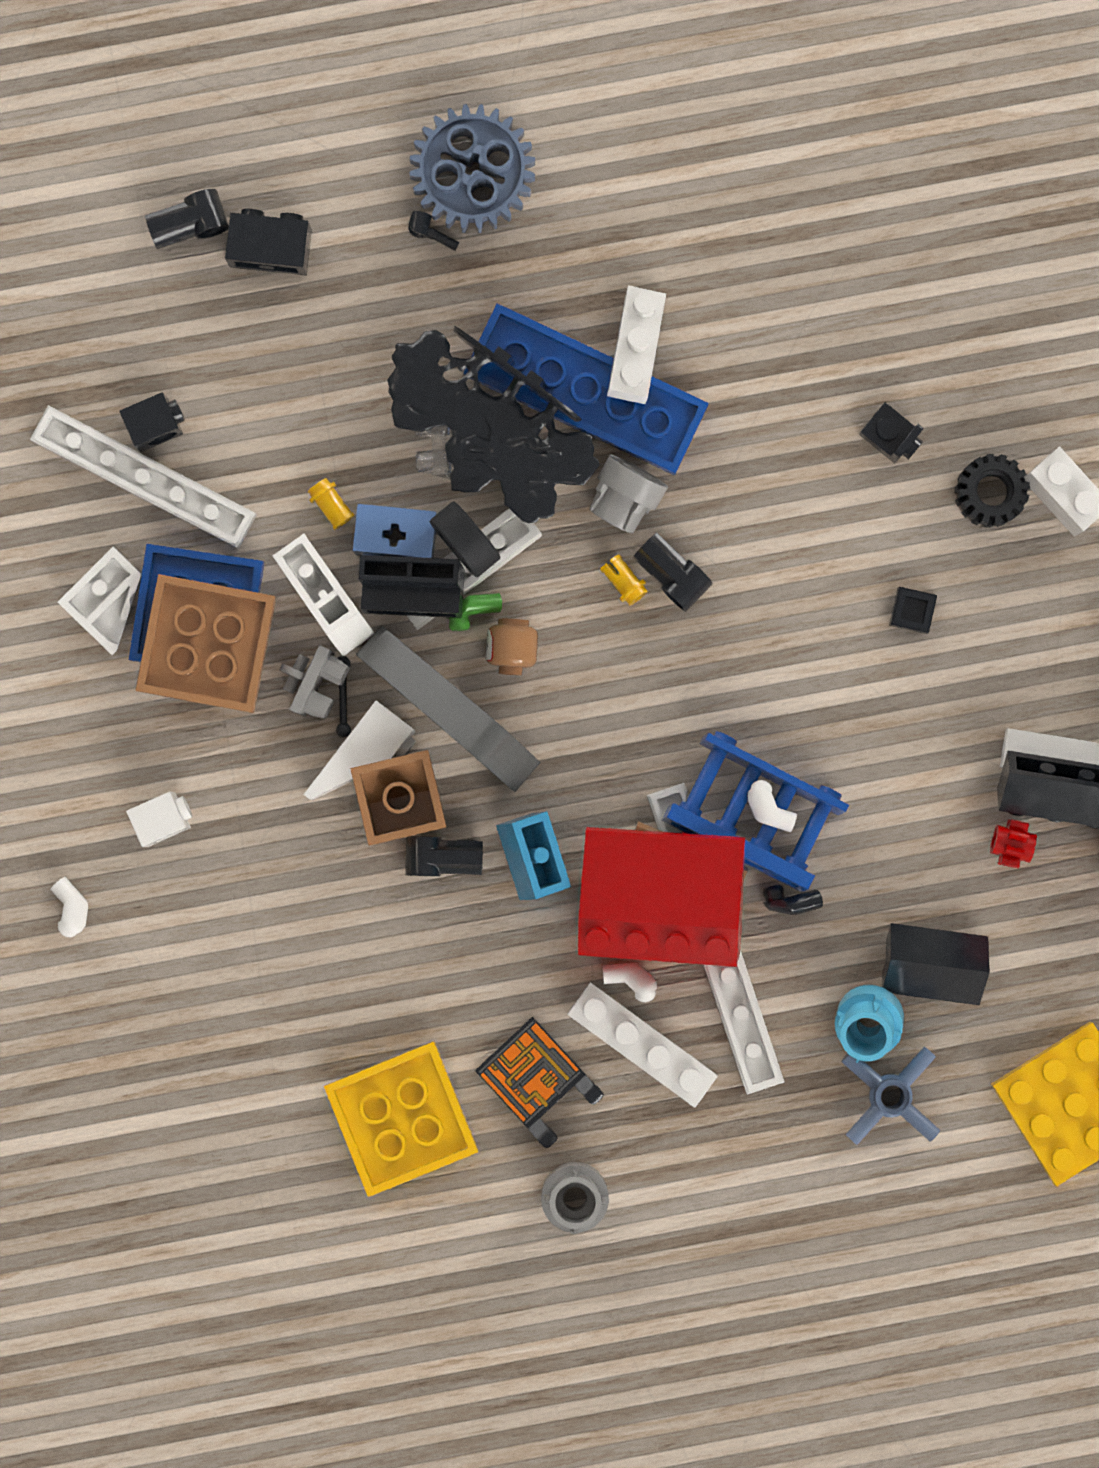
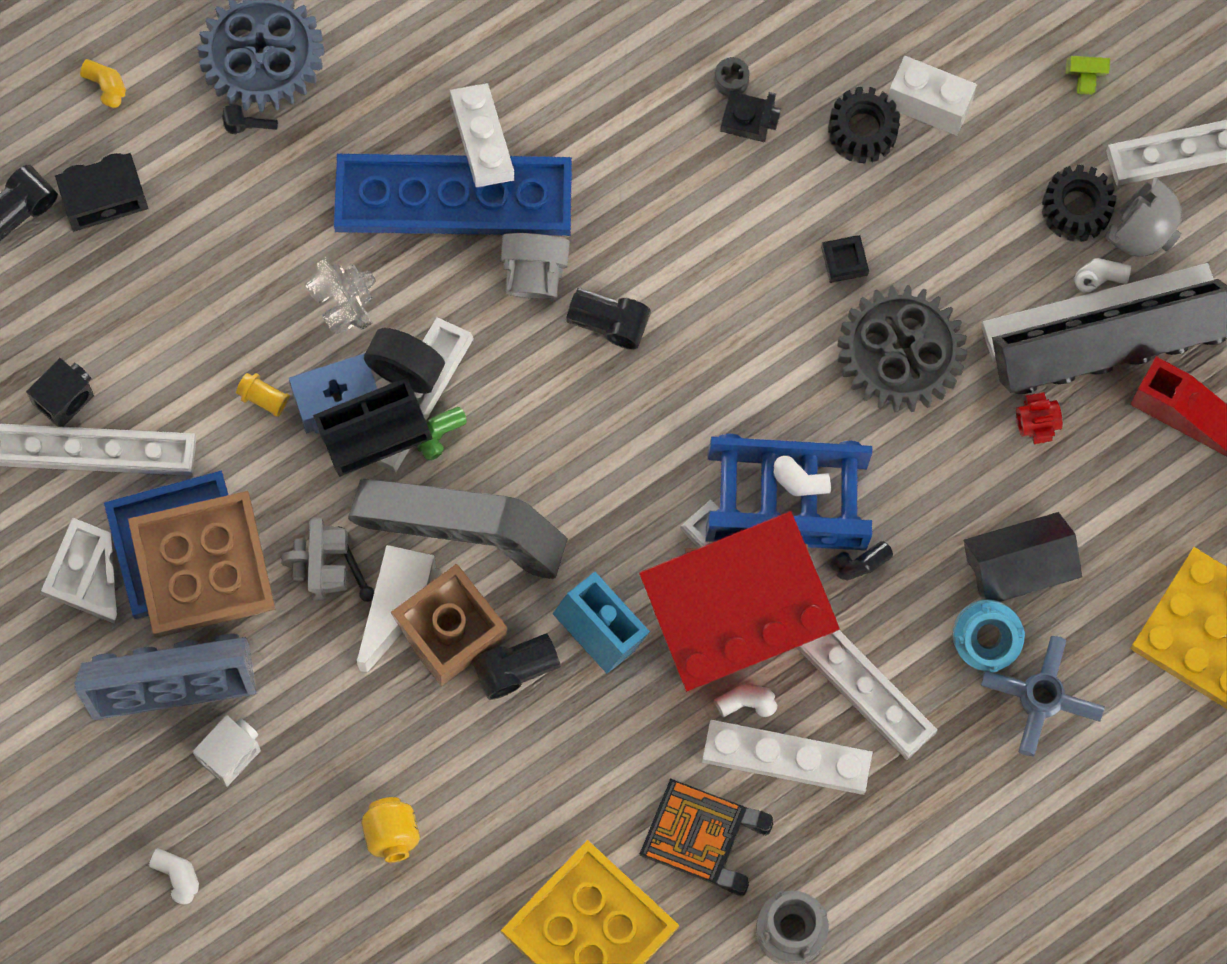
camera: 25 degrees left, 15 degrees down
(131, 729) = (166, 677): none -> sand blue slope
(269, 954) = (390, 829): none -> yellow head
(322, 135) = (109, 82): none -> yellow arm
(323, 595) = (294, 477): white slope -> none
(489, 432) = (383, 261): black plant -> none
(512, 646) = (491, 446): medium nougat head -> none
(625, 582) = (569, 345): yellow pin -> none
(893, 375) = (725, 67): none -> dark grey bush
(958, 722) = (934, 337): none -> dark grey gear

